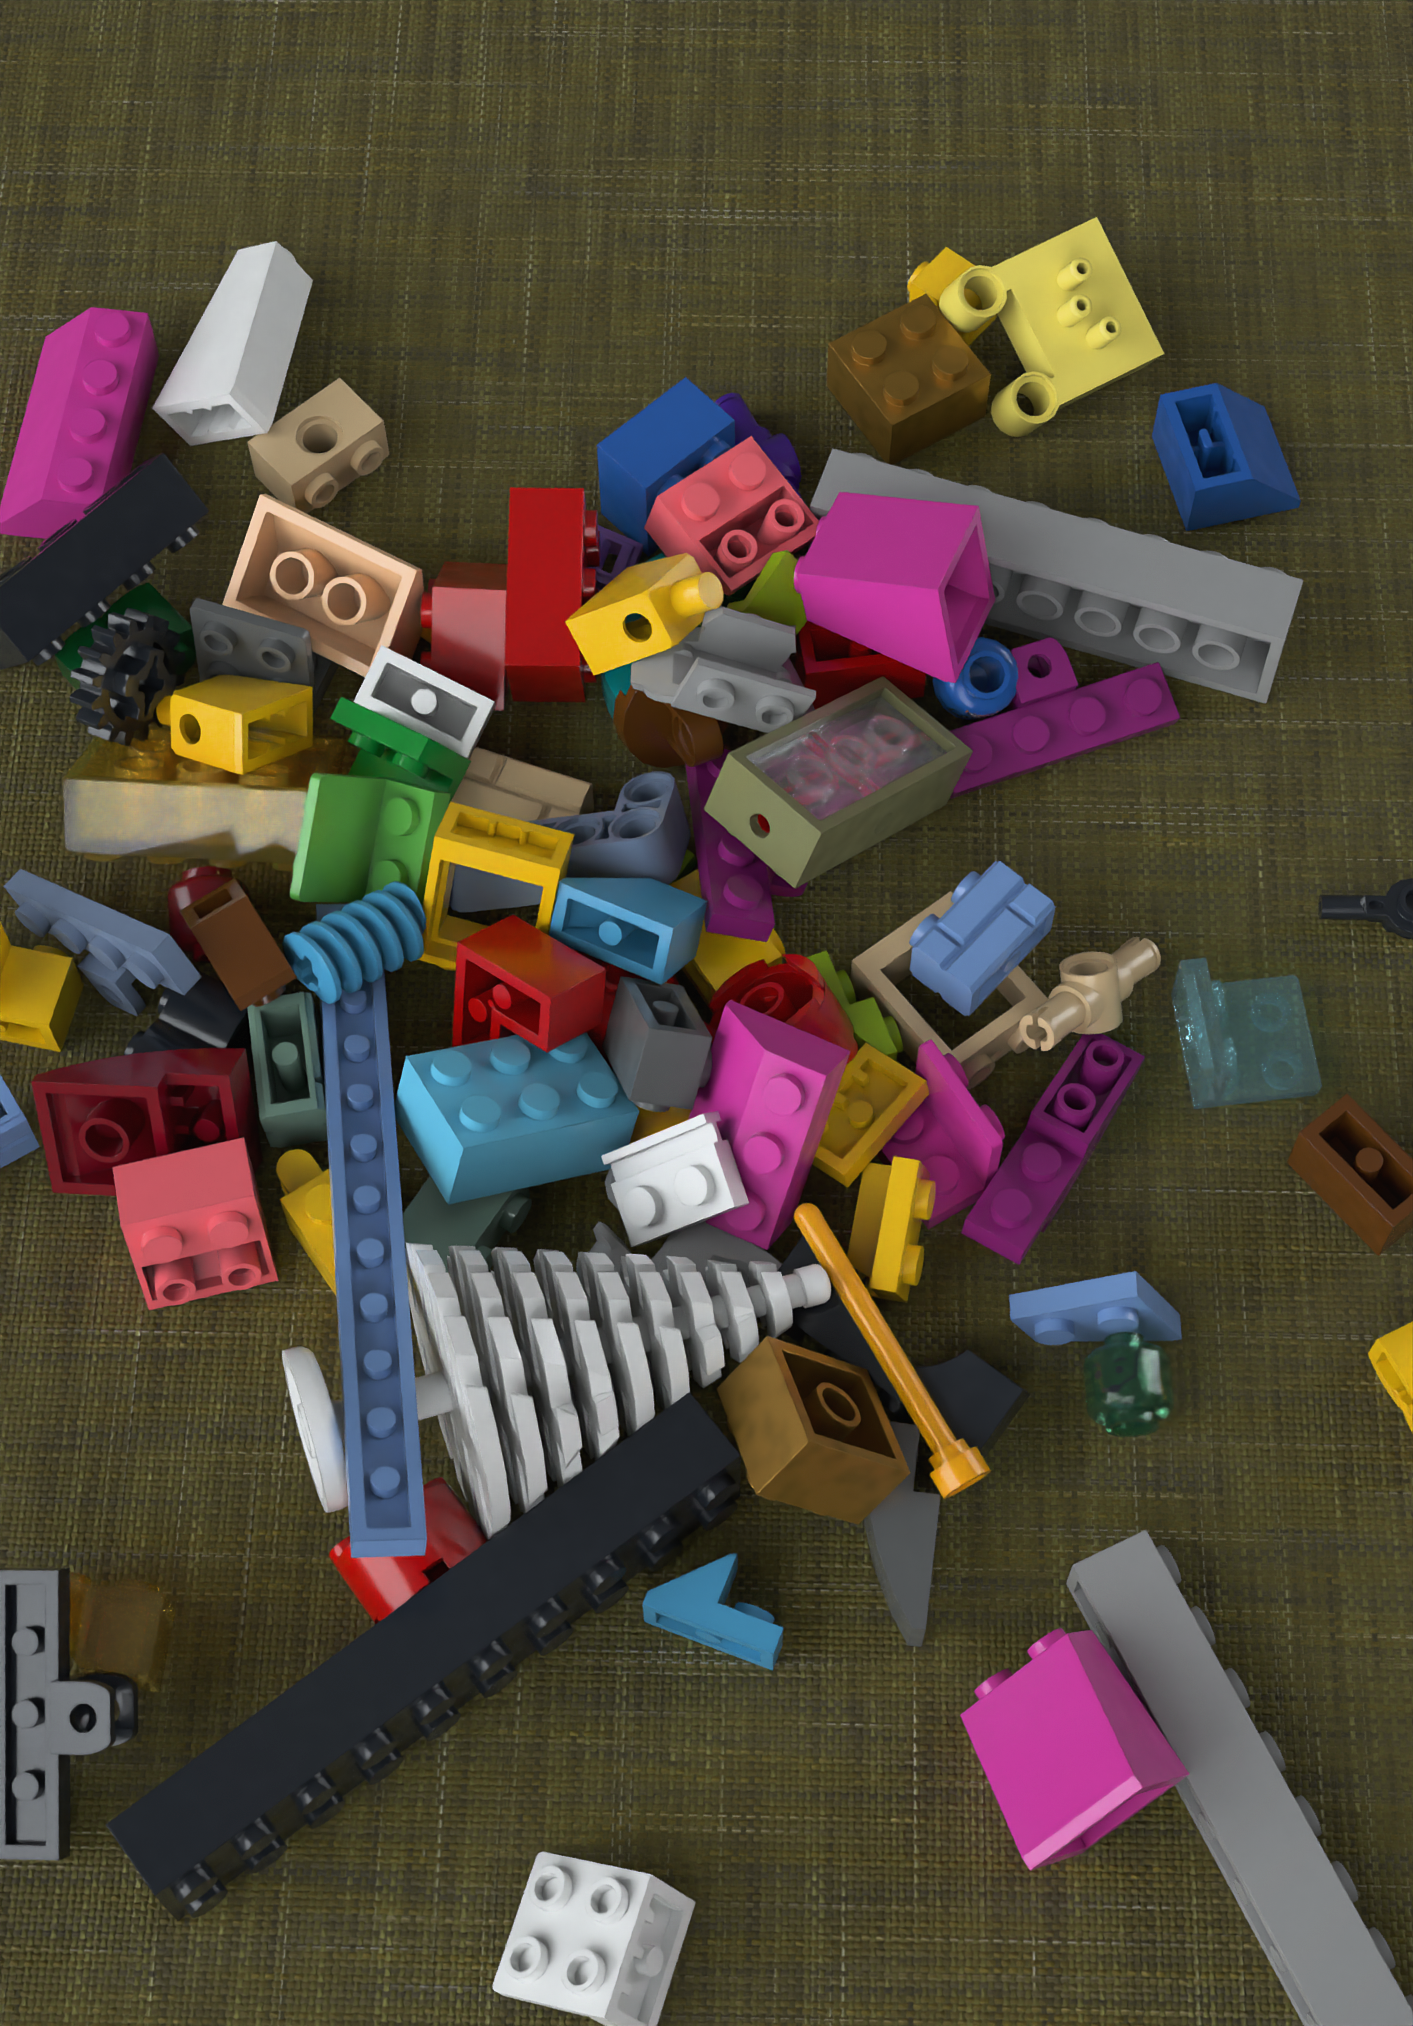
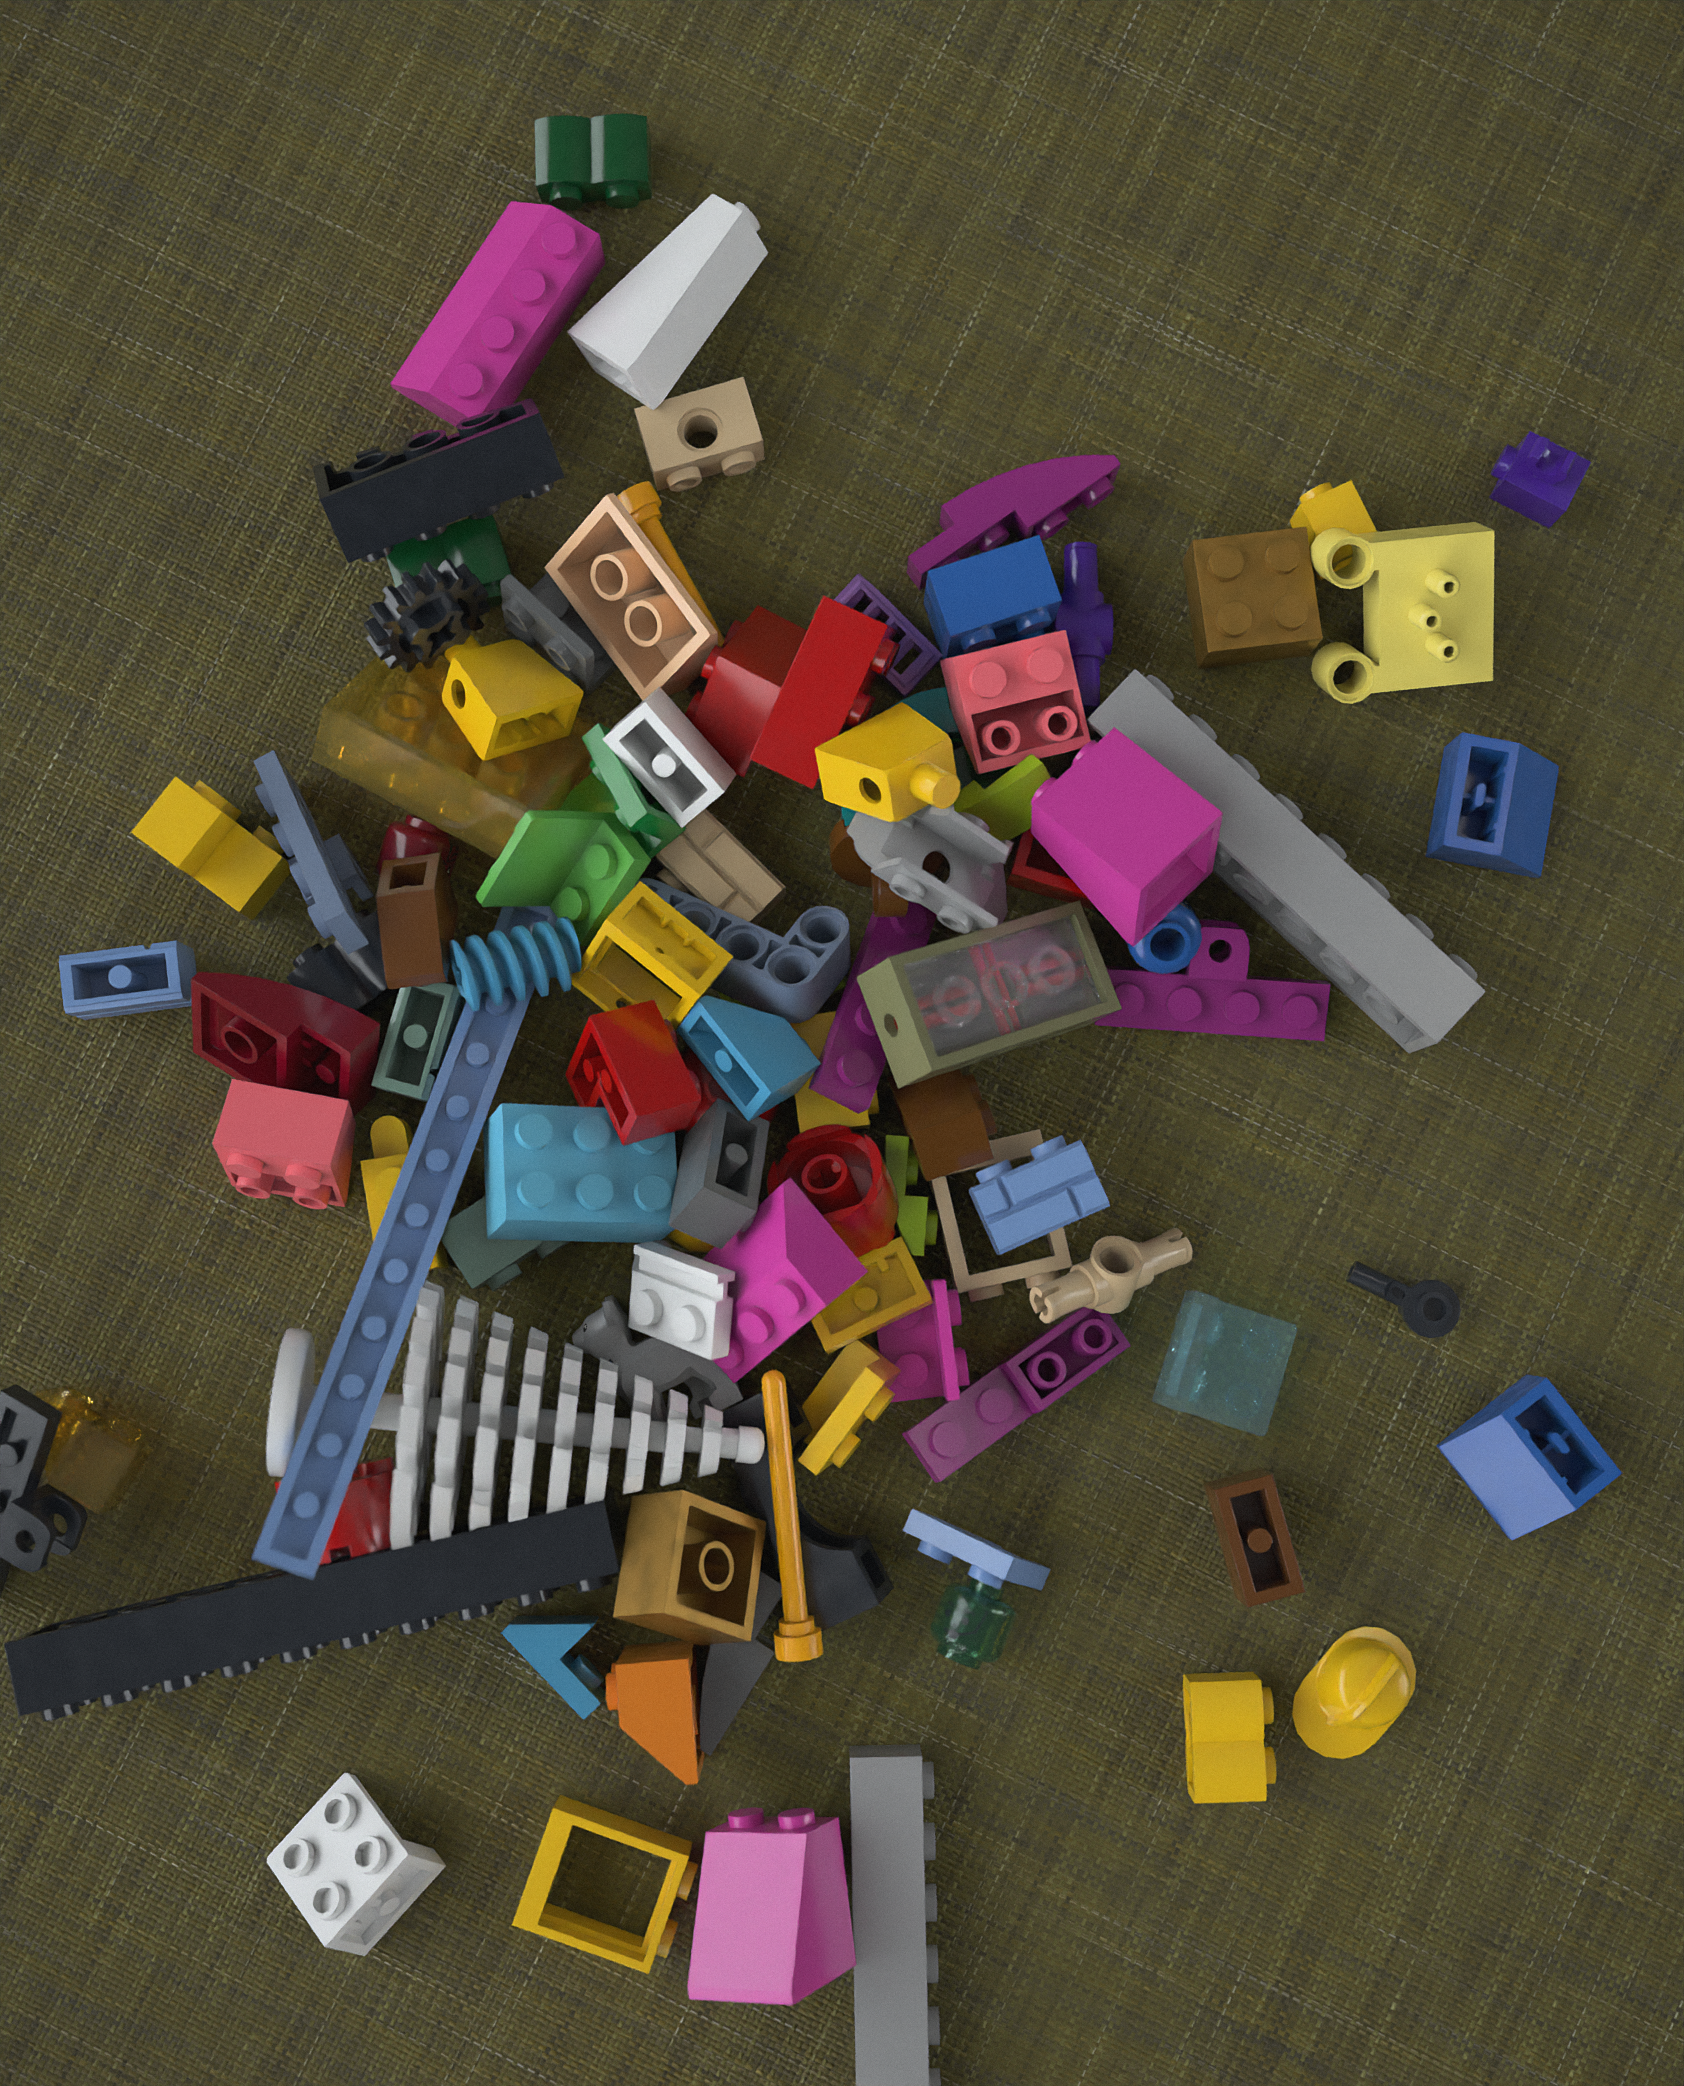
camera: 20 degrees right, 20 degrees up
(113, 267) = (593, 160): none -> dark green brick
(685, 351) = (1026, 499): none -> magenta slope
(849, 1597) = (660, 1703): none -> orange slope
(850, 916) = (945, 1122): none -> reddish brown brick
(954, 1792) = (589, 1934): none -> yellow window
(1113, 188) = (1538, 478): none -> dark purple brick

